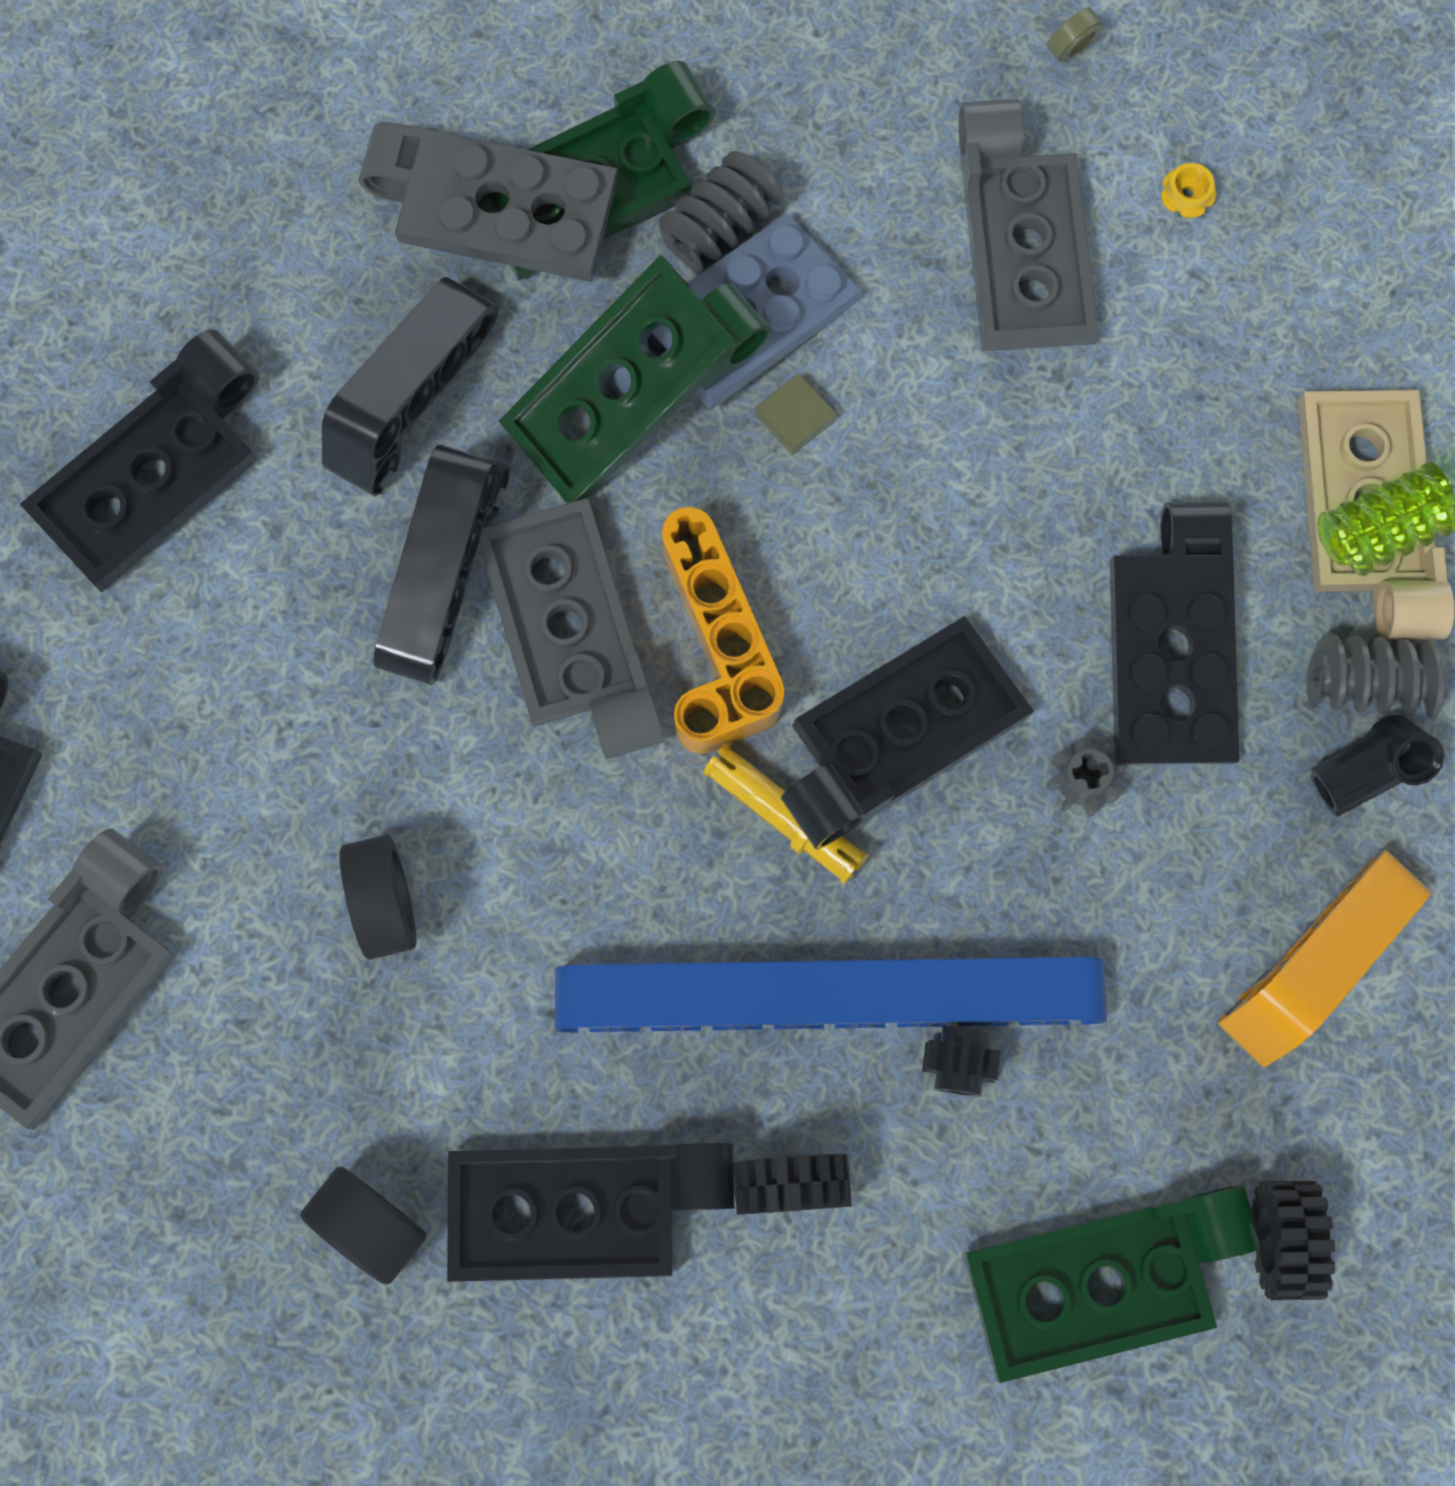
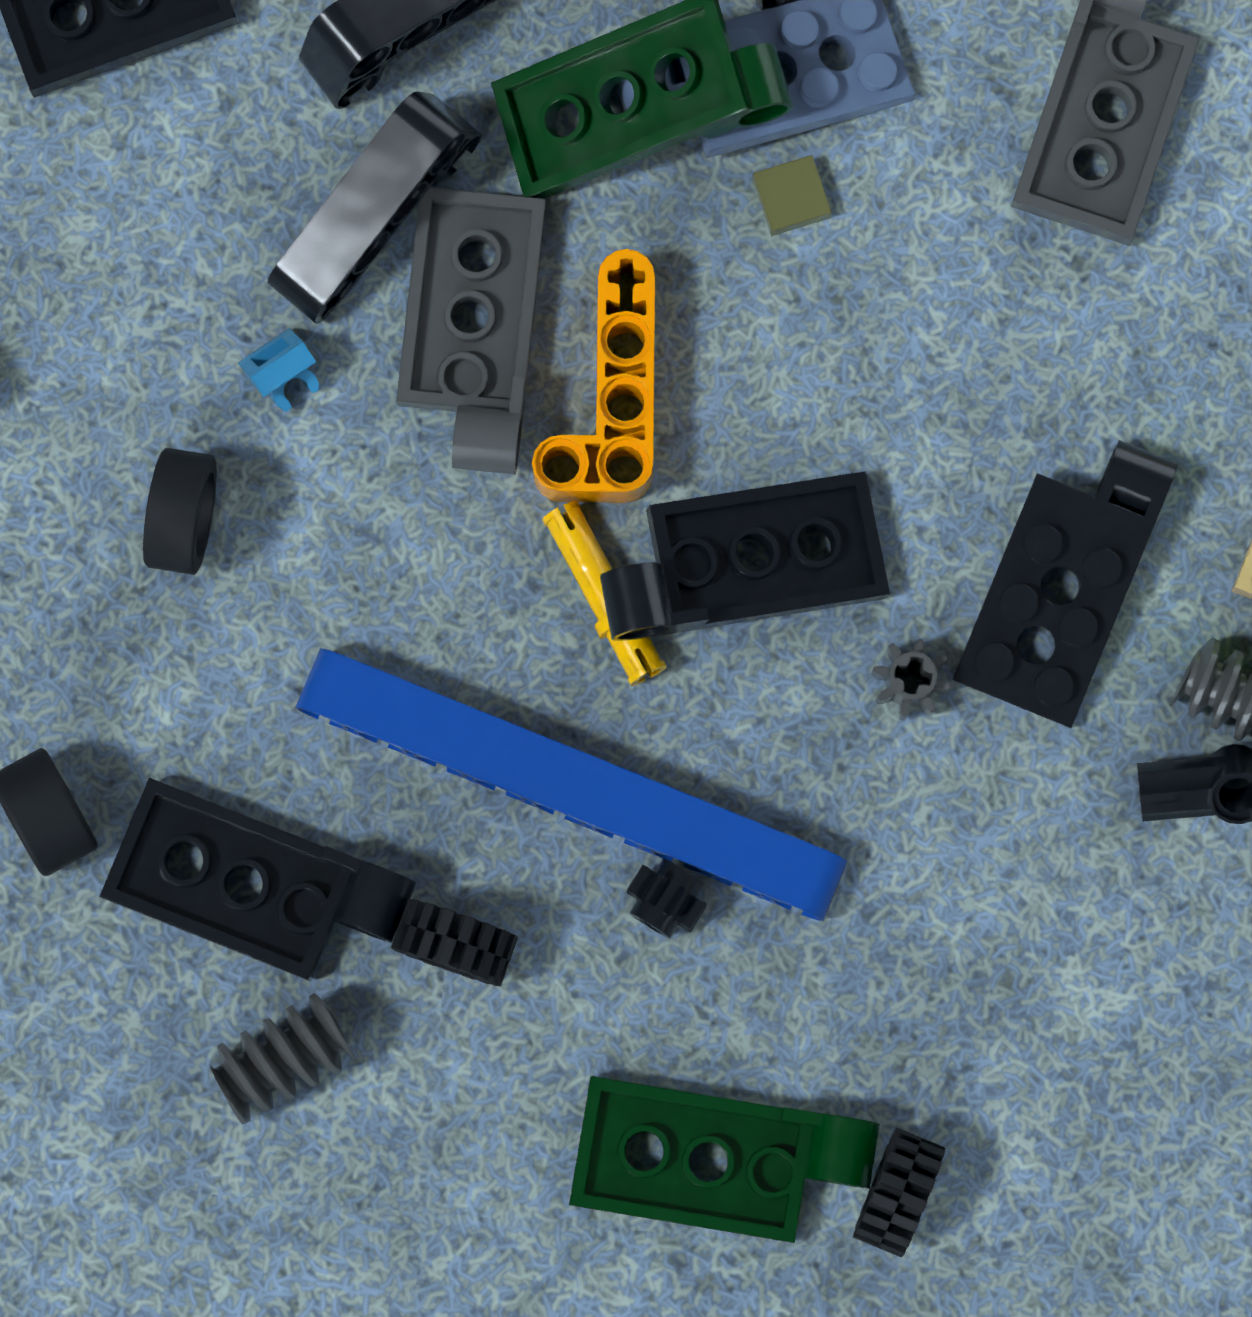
camera: 25 degrees right, 5 degrees up
(412, 731) = (276, 364): none -> dark azure tile
(677, 1362) = (280, 1058): none -> dark grey piece
(1326, 960) = (1062, 948): light orange beam -> none

